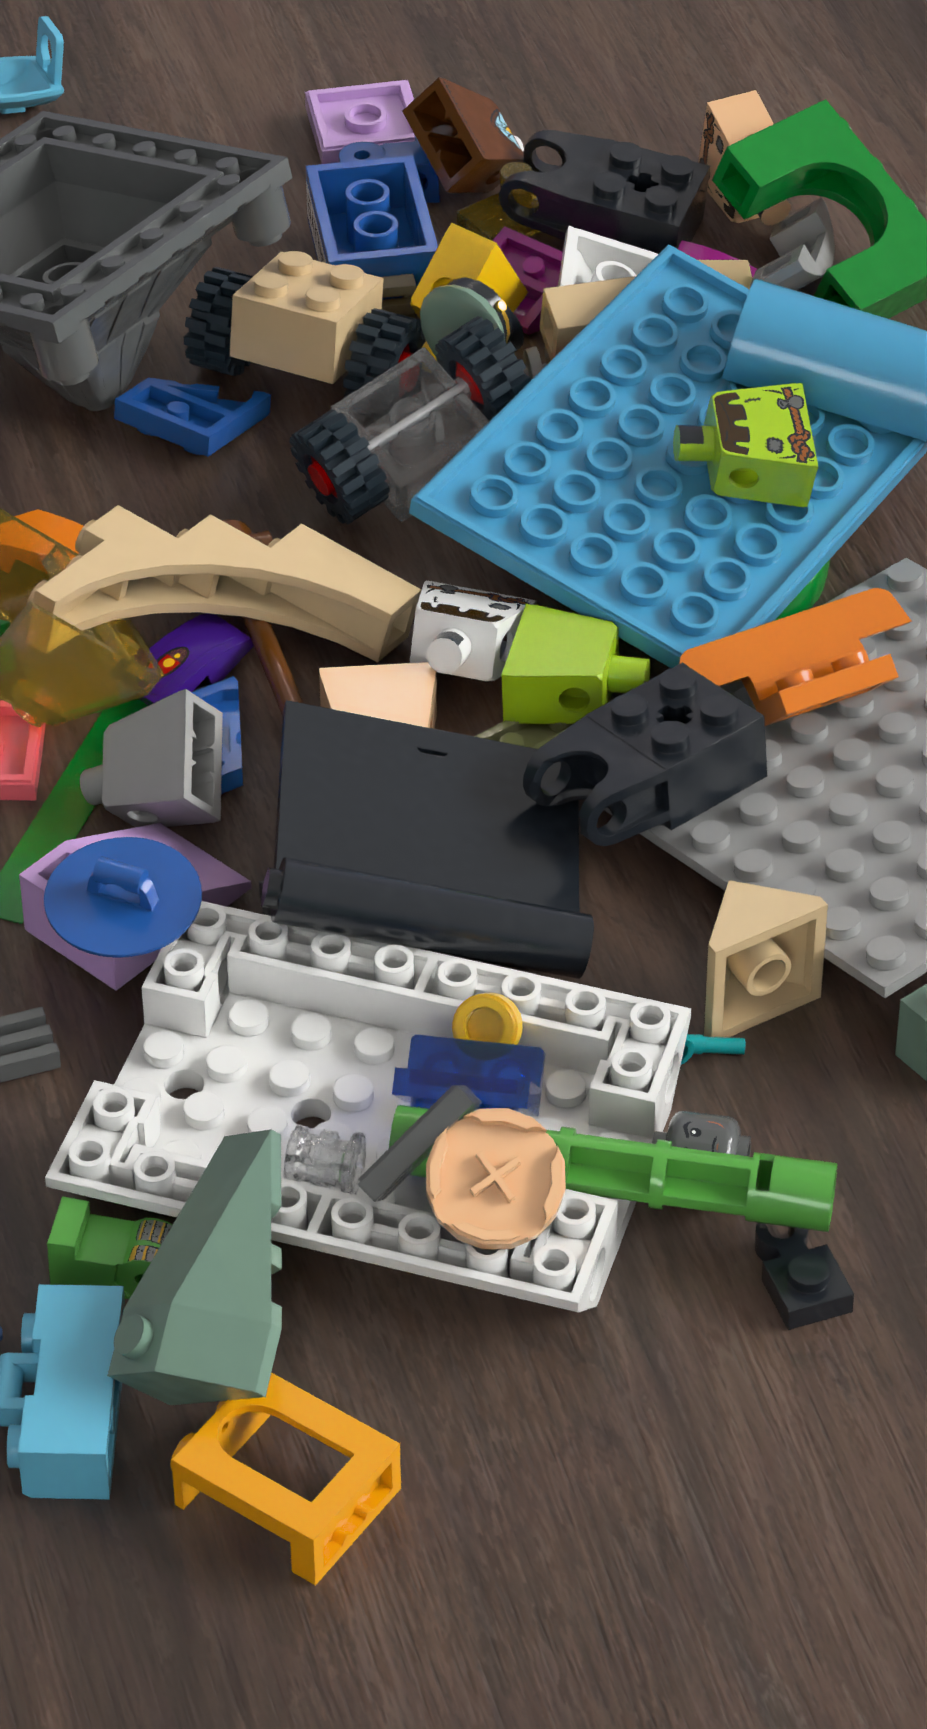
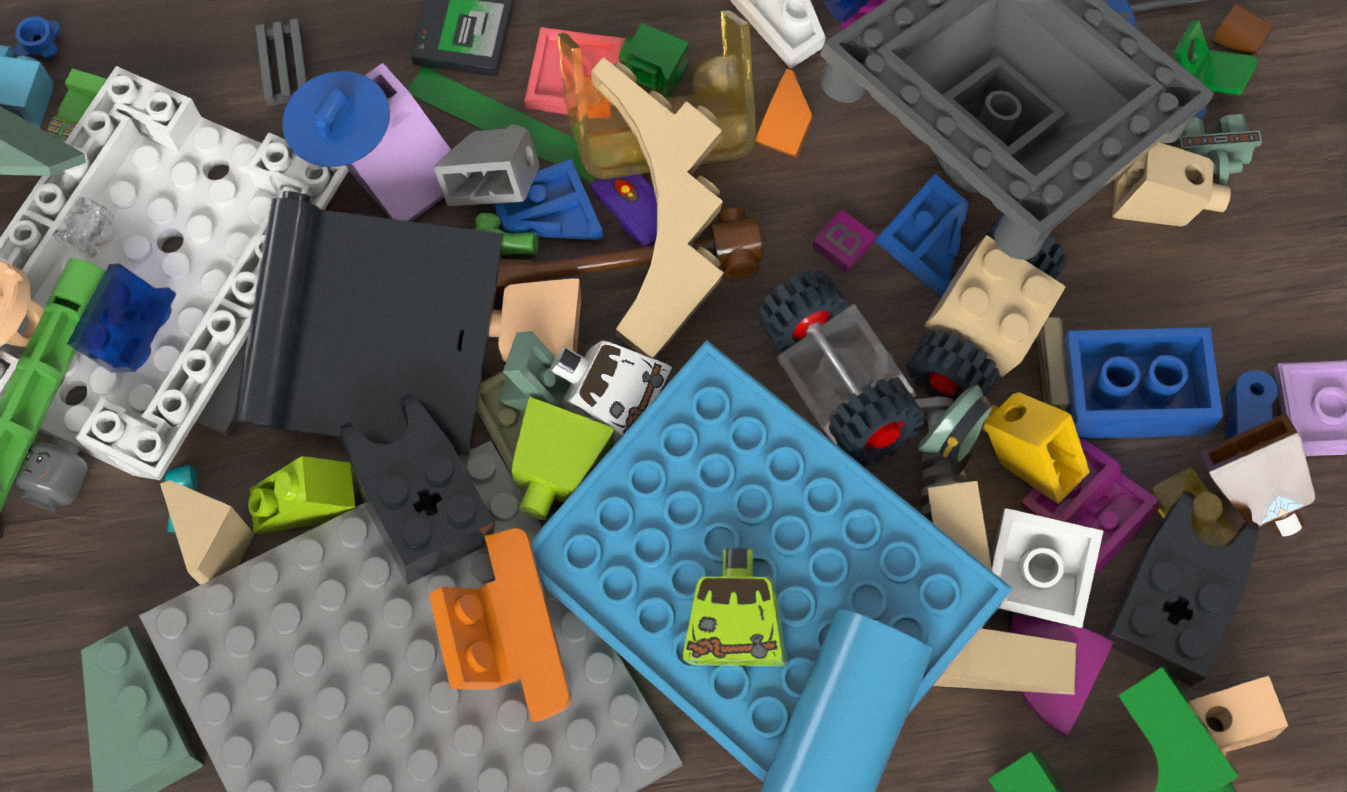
camera: 100 degrees right, 25 degrees up
(208, 486) = (844, 241): none -> magenta tile
(256, 776) = (513, 242): none -> bright green arm
(417, 1142) = (31, 266): dark grey tile -> none
(465, 694) = (530, 374): none -> sand green slope
(488, 1019) = (175, 340): yellow tile -> none
(669, 906) = (302, 495): none -> lime slope
(804, 248) = (1069, 745): light grey slope -> none

